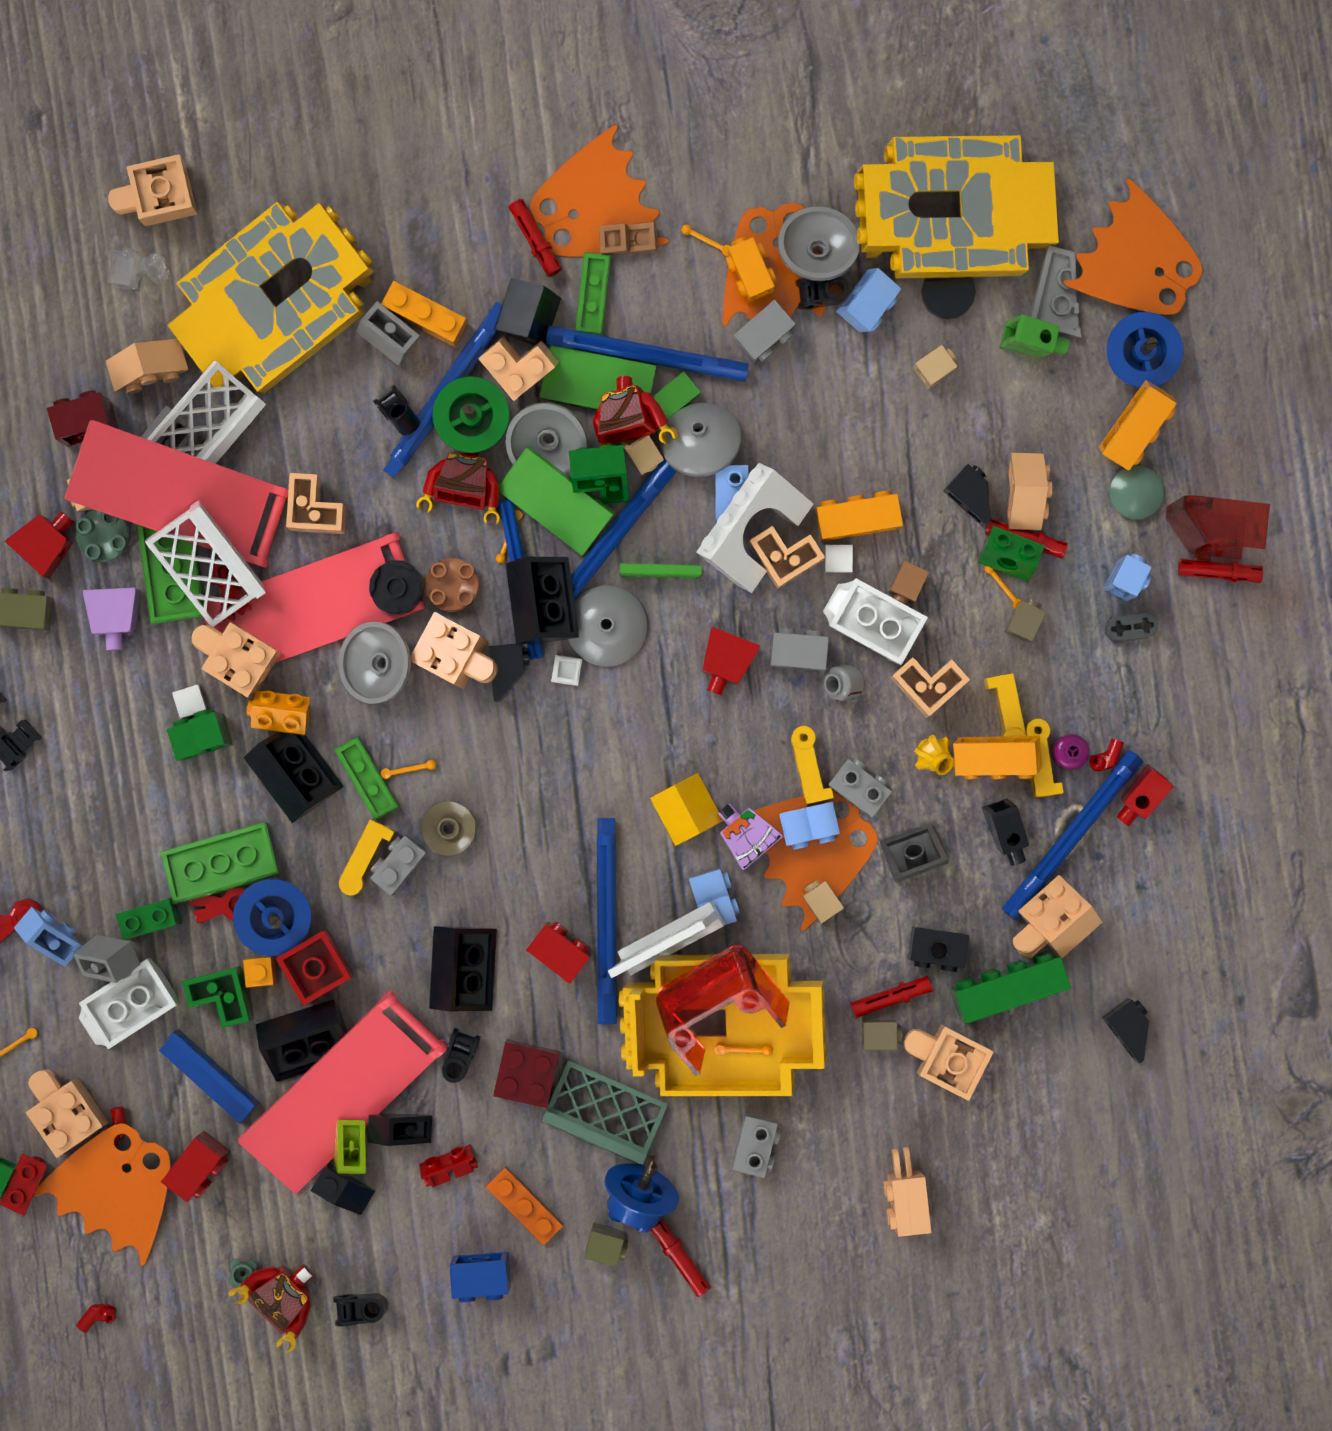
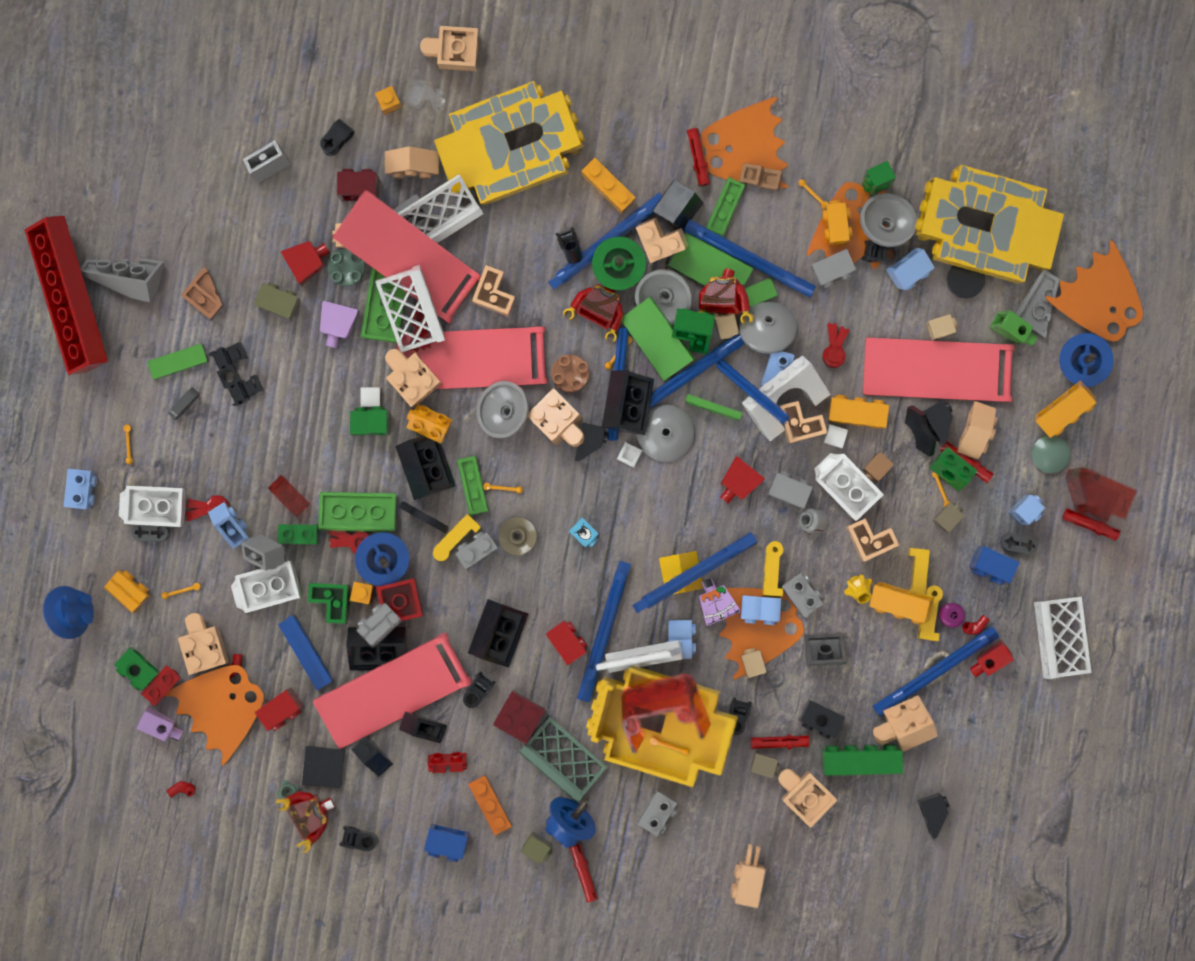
camera: 25 degrees right, 0 degrees up
(25, 1242) = (152, 719): none -> lavender torso
(34, 359) = (338, 135): none -> black piece
(88, 290) = (388, 100): none -> light orange brick
(119, 870) = (288, 495): none -> clear red slope
(280, 1225) = (323, 767): none -> black tile
(294, 1009) = (379, 624): none -> light grey brick
(312, 842) = (424, 517): none -> black tile
(350, 1147) = (386, 729): lime slope -> none
(387, 333) = (579, 191): light grey brick -> none
(396, 587) = (532, 363): black tile -> none
(538, 796) = (584, 533): none -> medium azure brick
(705, 802) = (695, 572): none -> blue piece
(707, 532) = (753, 392): none -> blue axle
(788, 191) = (878, 178): none -> green brick
(801, 449) = (834, 355): none -> red piece
(828, 975) = (742, 714): none -> black piece
(946, 426) = (936, 369): none -> coral flag
(959, 524) = (918, 424): none -> black tile
(1003, 820) = (892, 646): black torso -> none
(1106, 666) = (994, 565): none -> blue brick
(1212, 750) = (1047, 641): none -> white fence

